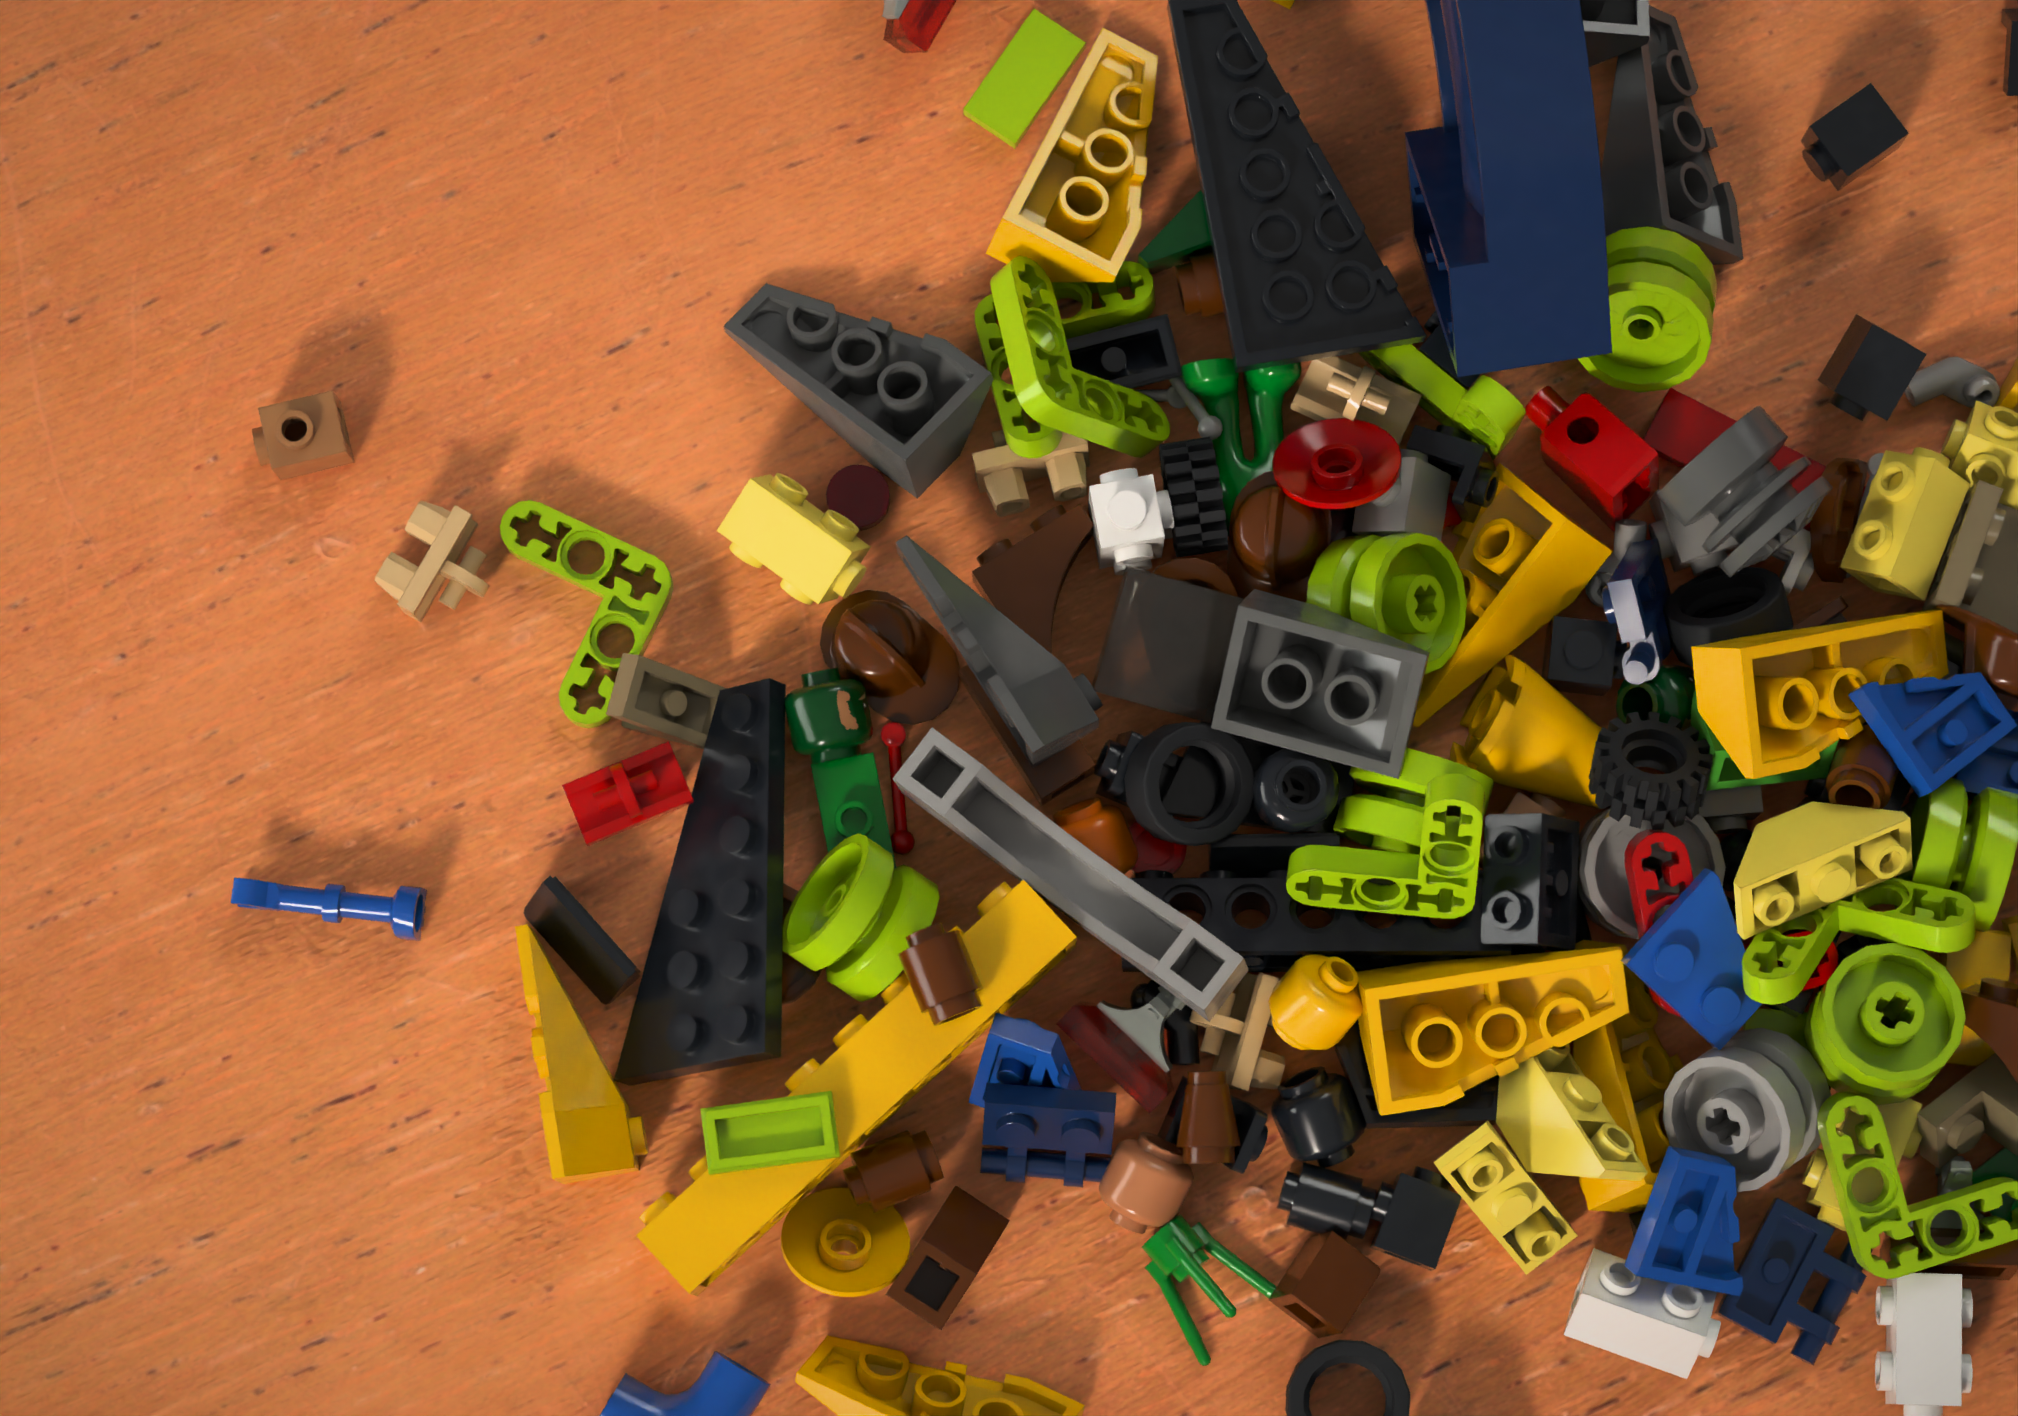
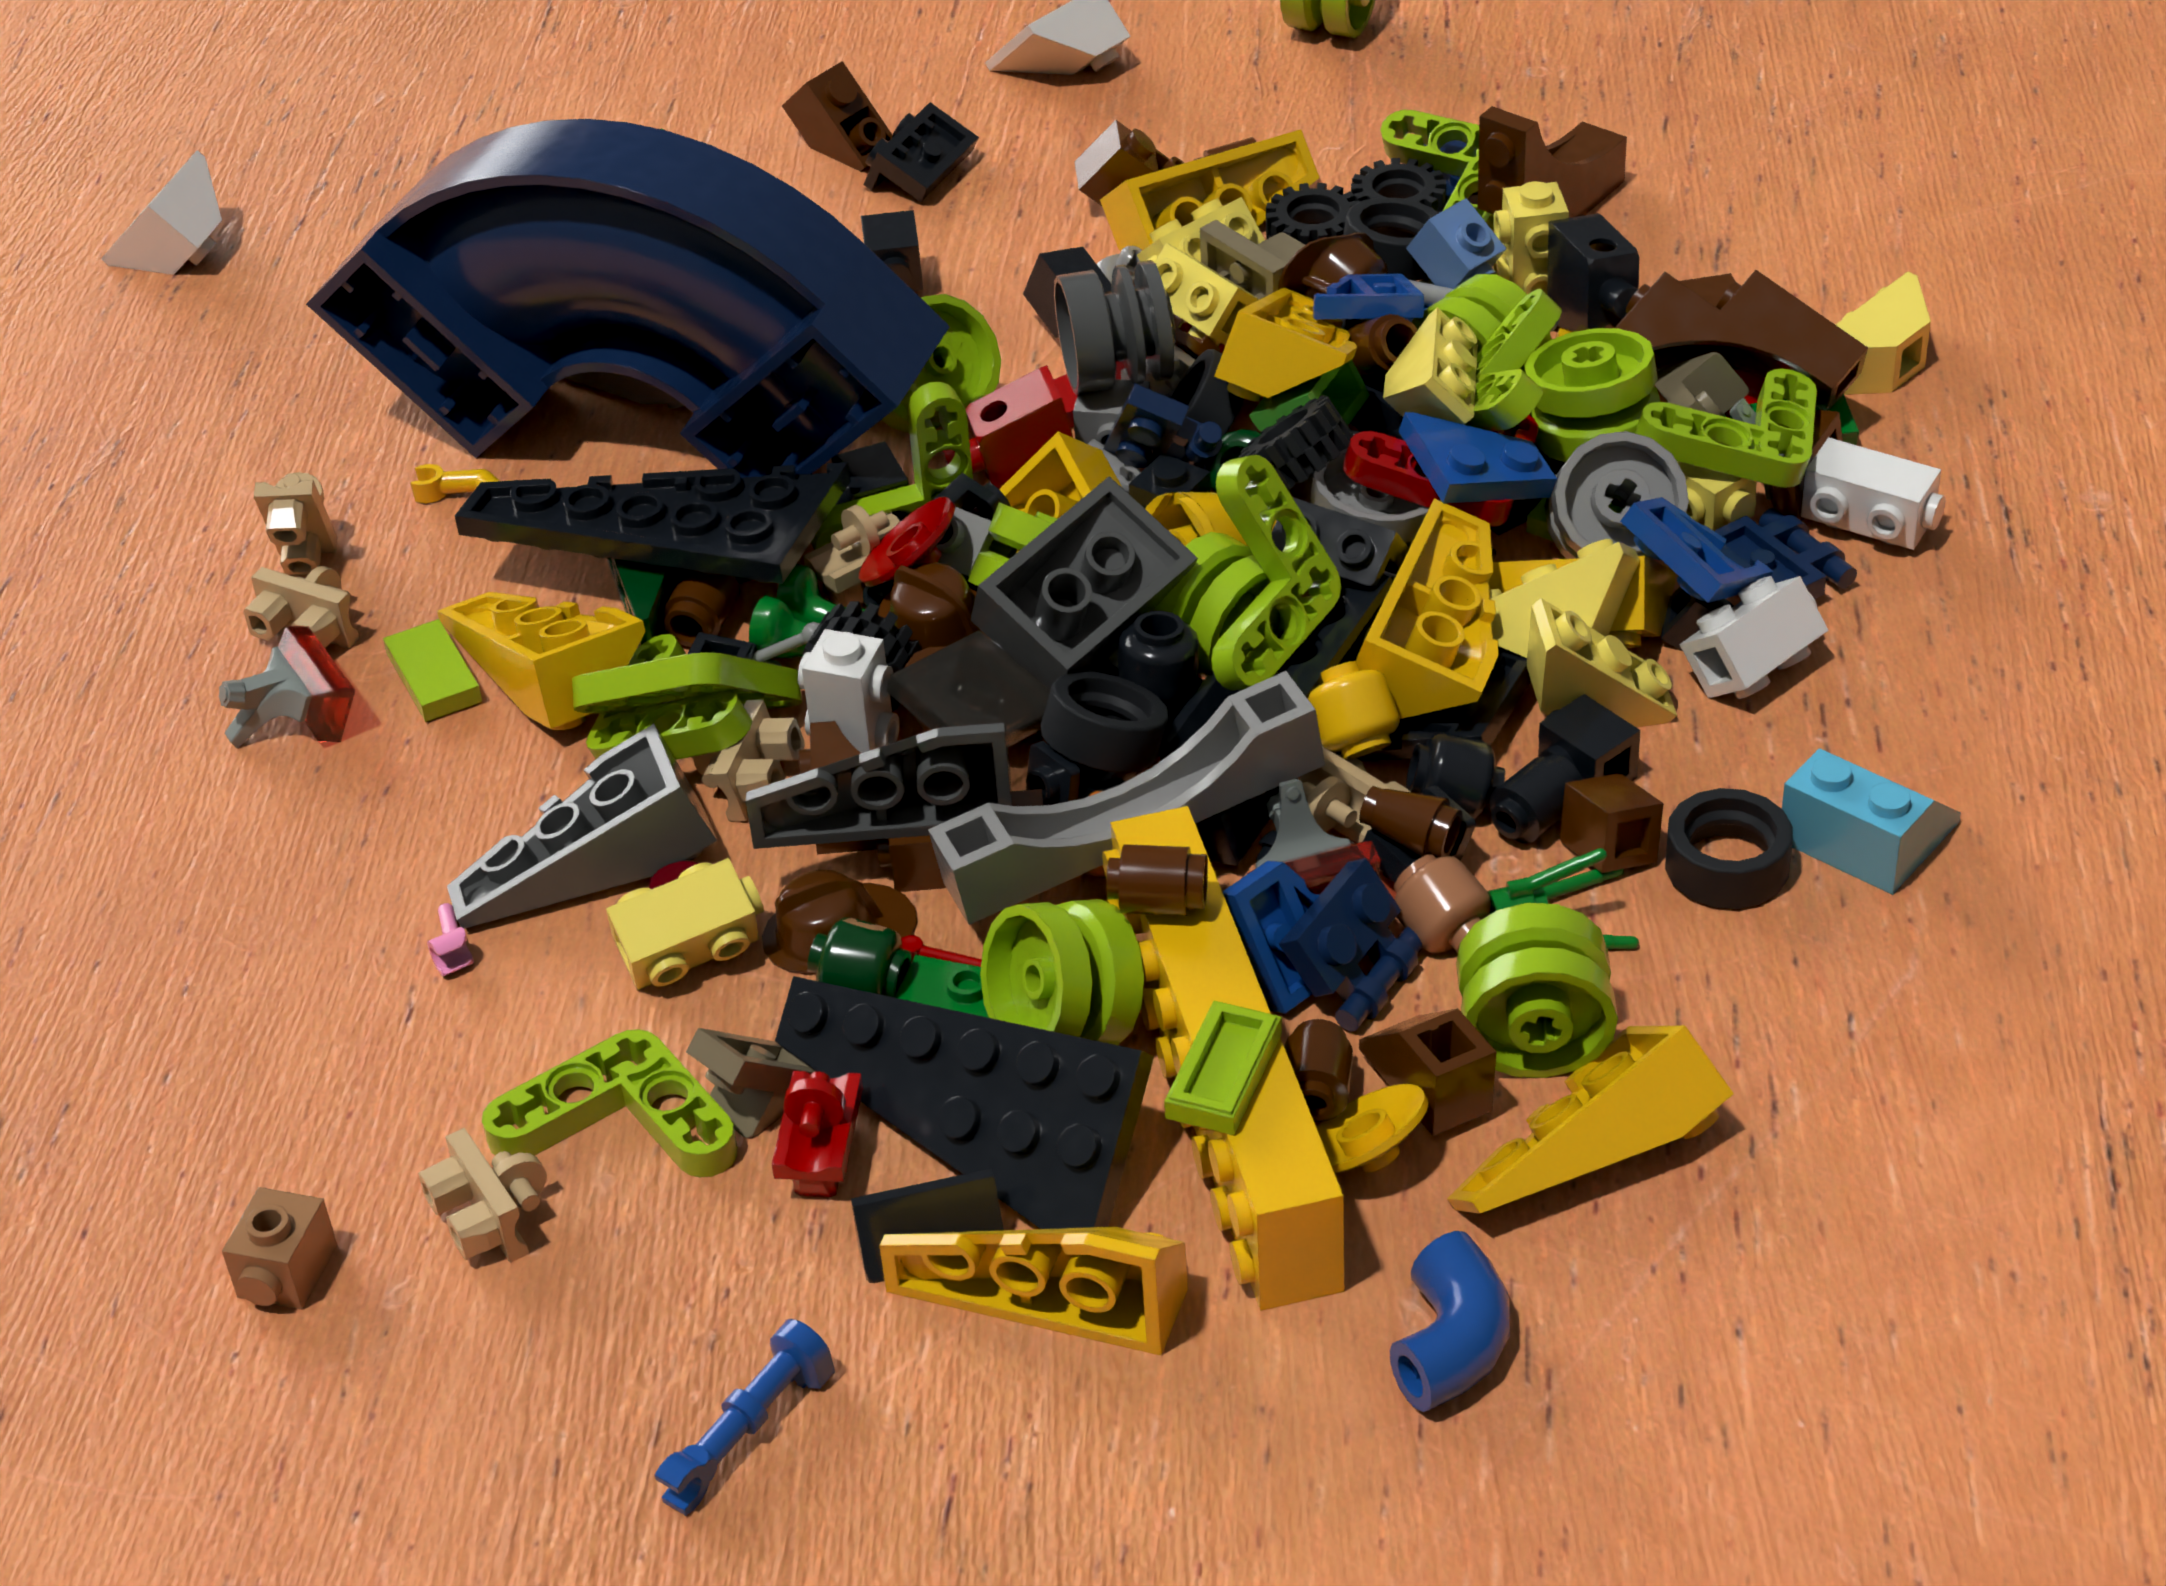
camera: 60 degrees left, 40 degrees down
(691, 344) = (450, 949): none -> bright pink hand
(1045, 1325) = (1538, 988): none -> lime wheel

